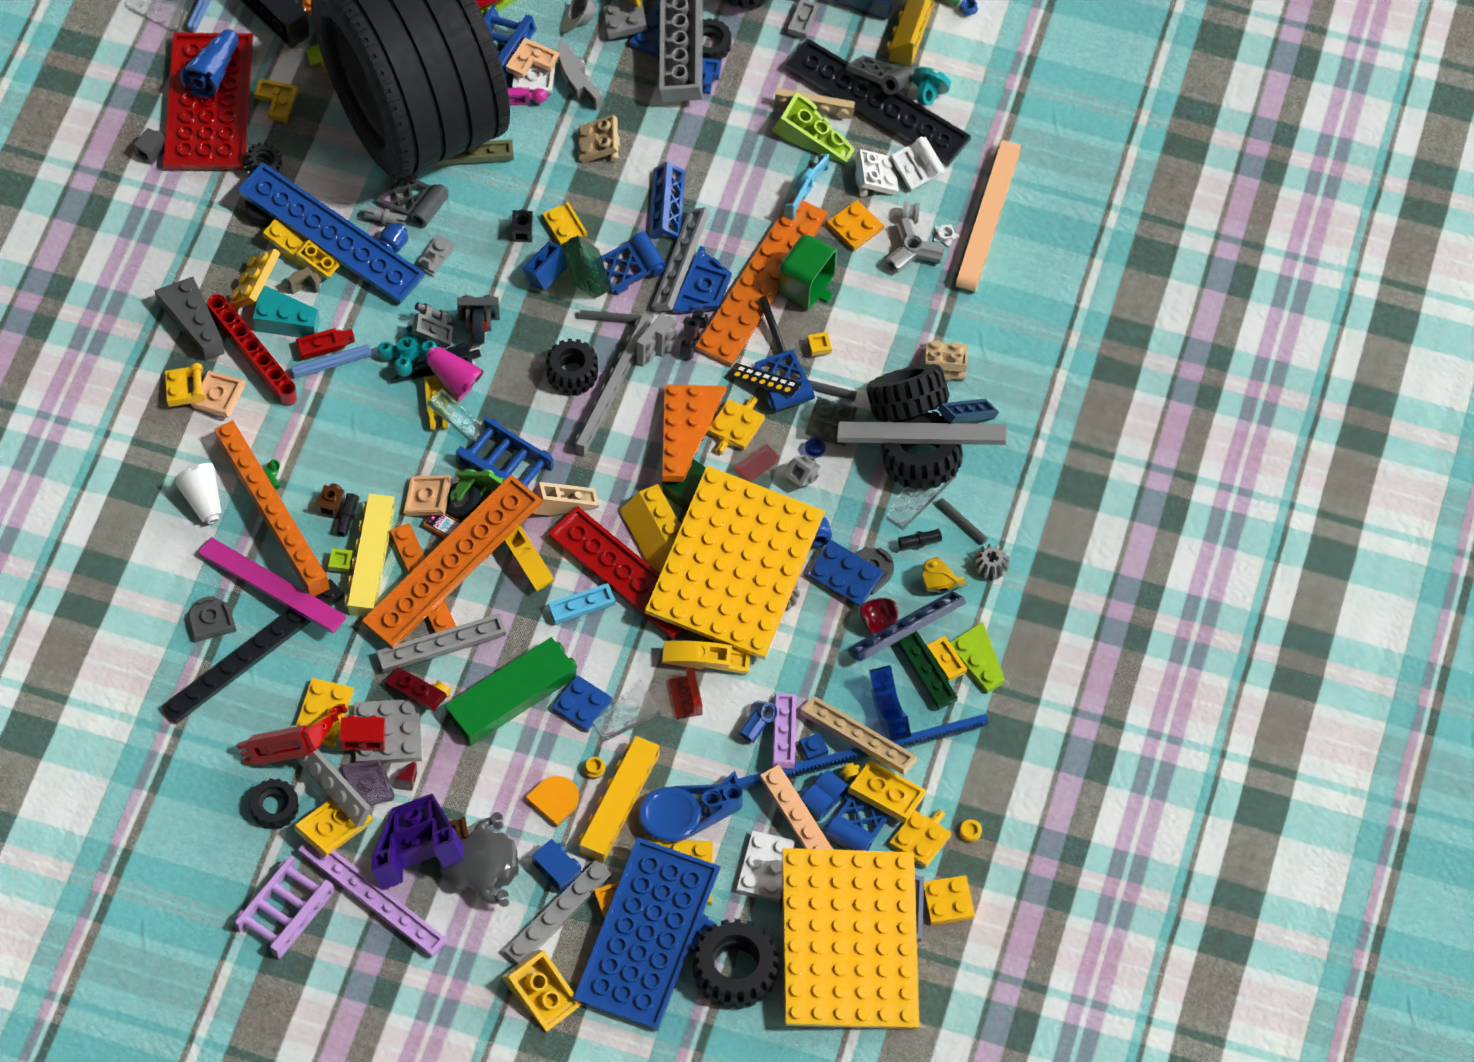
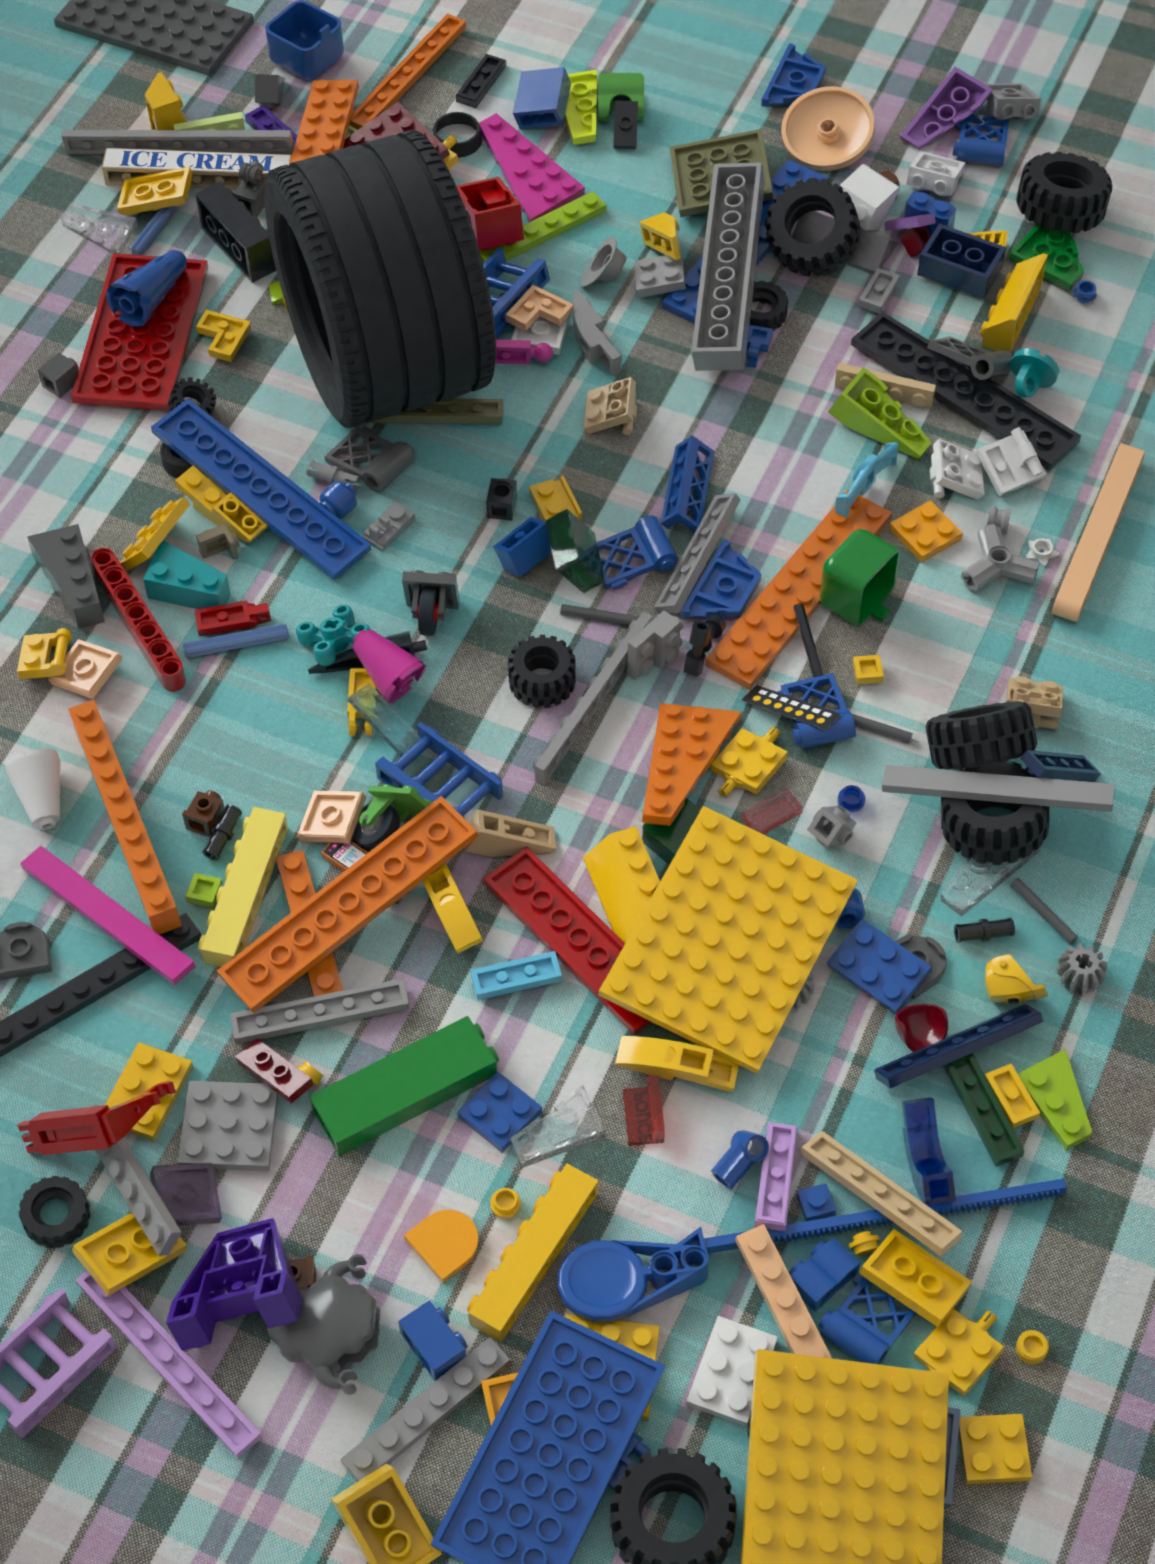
camera: 10 degrees right, 5 degrees down
(271, 471) = (133, 773): green arm -> none
(363, 733) = (190, 1124): red brick -> none
(407, 777) = (244, 1192): dark red slope -> none
(433, 329) = (368, 610): dark grey plate -> none
(826, 418) = (868, 762): clear smoke slope -> none

